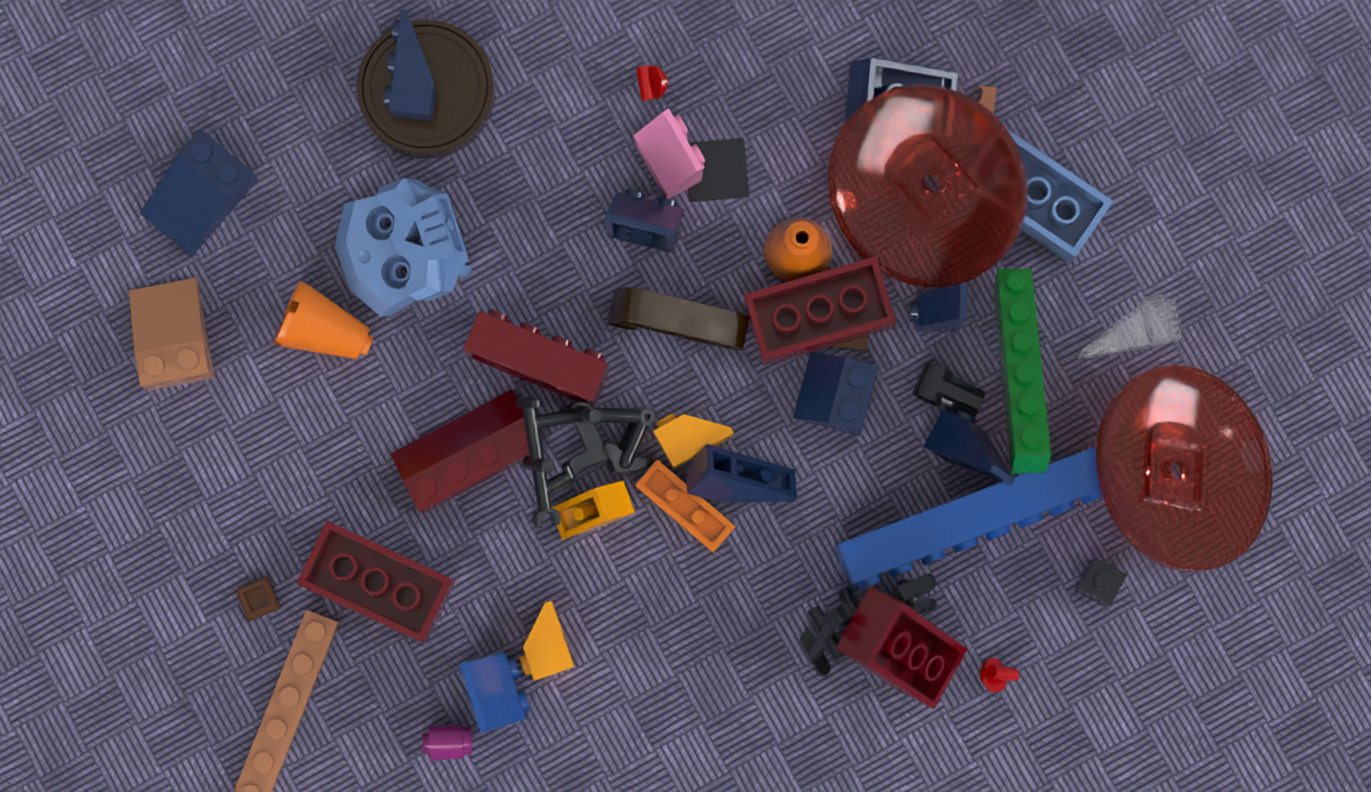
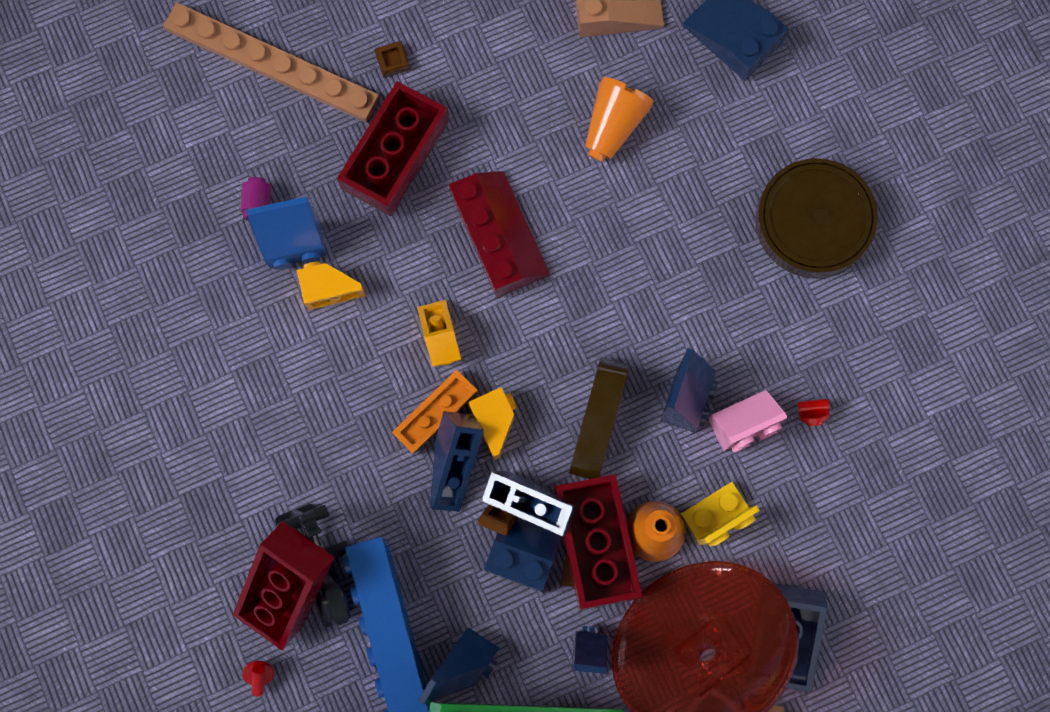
camera: 100 degrees right, 5 degrees down
(375, 255) = (682, 200): medium blue brick -> none
(412, 86) = (823, 201): dark blue slope -> none
(537, 359) = (571, 291): dark red brick -> none
(583, 416) = (517, 326): black piece -> none
(724, 171) = (727, 467): black sticker -> none
(777, 179) = (718, 514): none -> yellow bracket
(782, 388) = (528, 501): none -> slope
(800, 422) = (497, 520): none -> reddish brown tile
(940, 388) = (519, 650): black piece -> none

